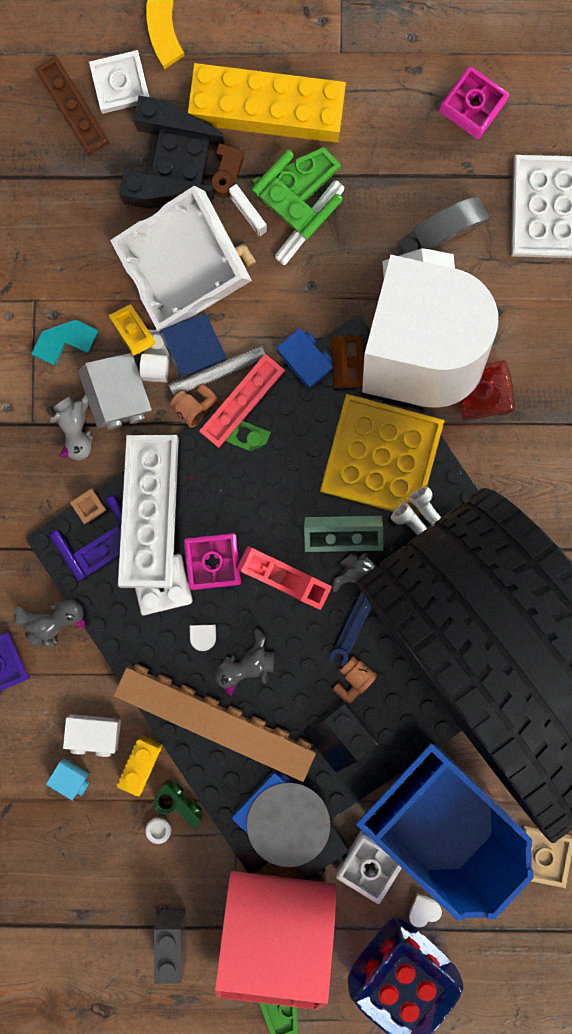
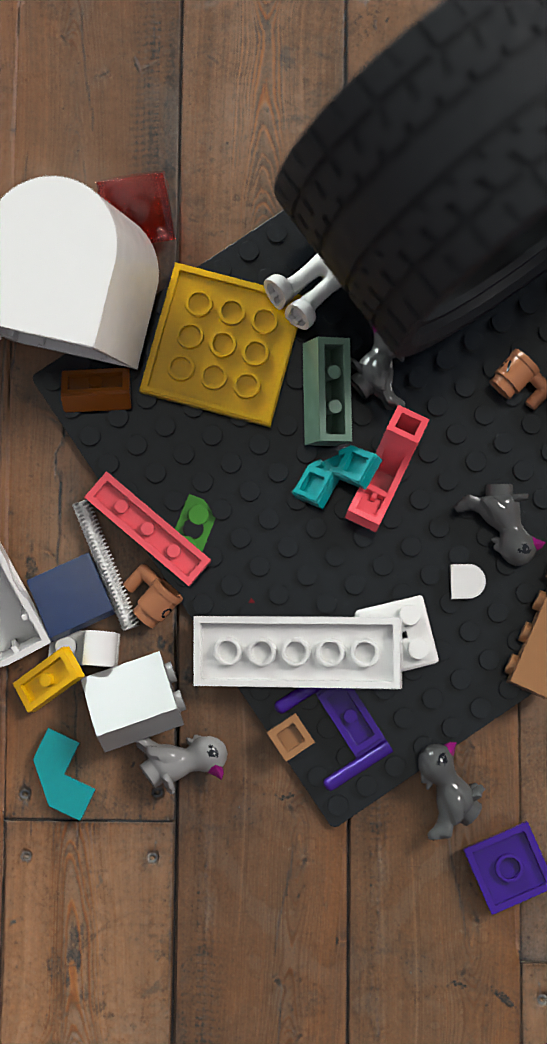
camera: 85 degrees left, 5 degrees down
(202, 575) = (381, 550): dark pink brick -> none
(281, 530) = (321, 477): none -> teal tile
(305, 358) = (91, 443): blue brick -> none
(351, 629) = (445, 377): dark blue piece -> none

